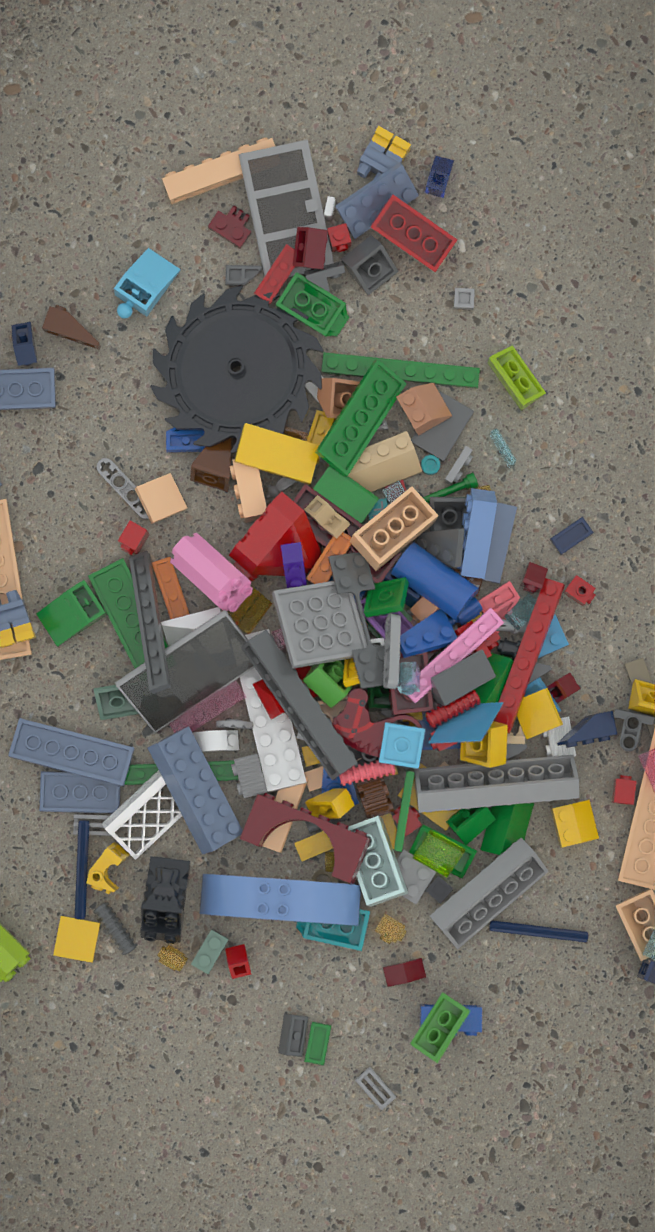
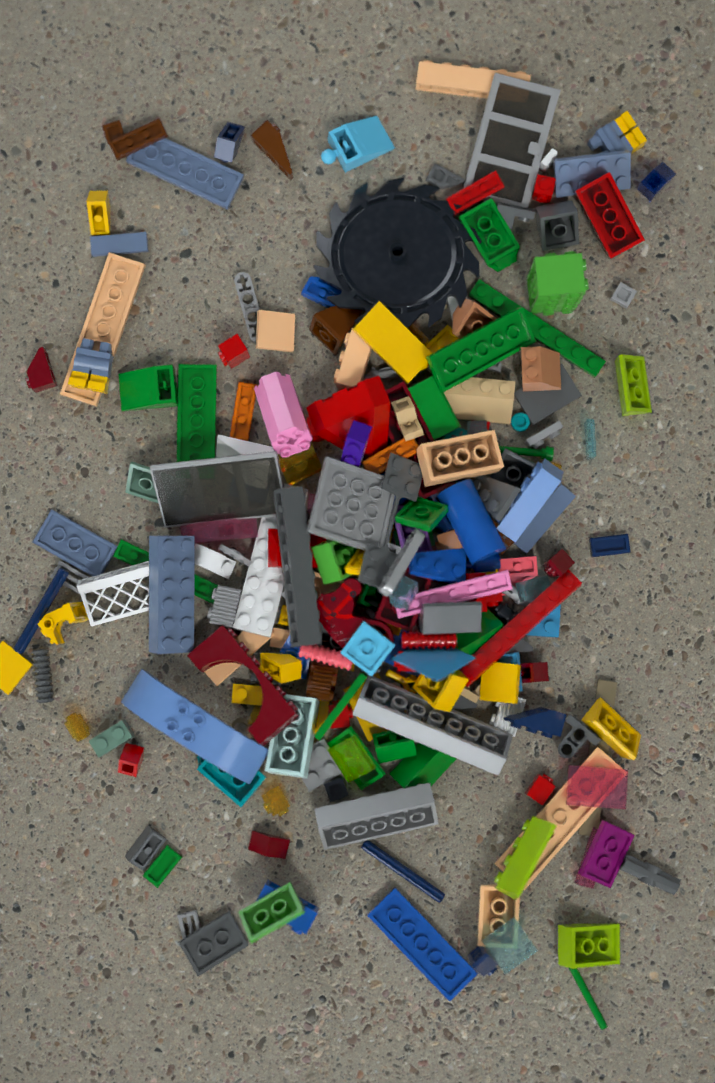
camera: 30 degrees right, 0 degrees up
(71, 752) = (85, 506): sand blue plate -> none
(149, 622) = (207, 430): dark grey plate -> none
(164, 900) = (96, 673): black brick -> none
(231, 226) = (456, 133): dark red hinge -> none
(310, 248) = (514, 183): dark red brick -> none
(398, 322) = (556, 283): none -> bright green brick
(401, 1087) = (213, 943): none -> dark grey tile
(446, 758) = (402, 680): none -> yellow bar
(574, 823) = (482, 794): yellow slope -> none
(580, 591) = (592, 596): red brick -> none
(590, 987) = (422, 944): none -> blue plate
(641, 858) = (525, 857): none -> lime slope

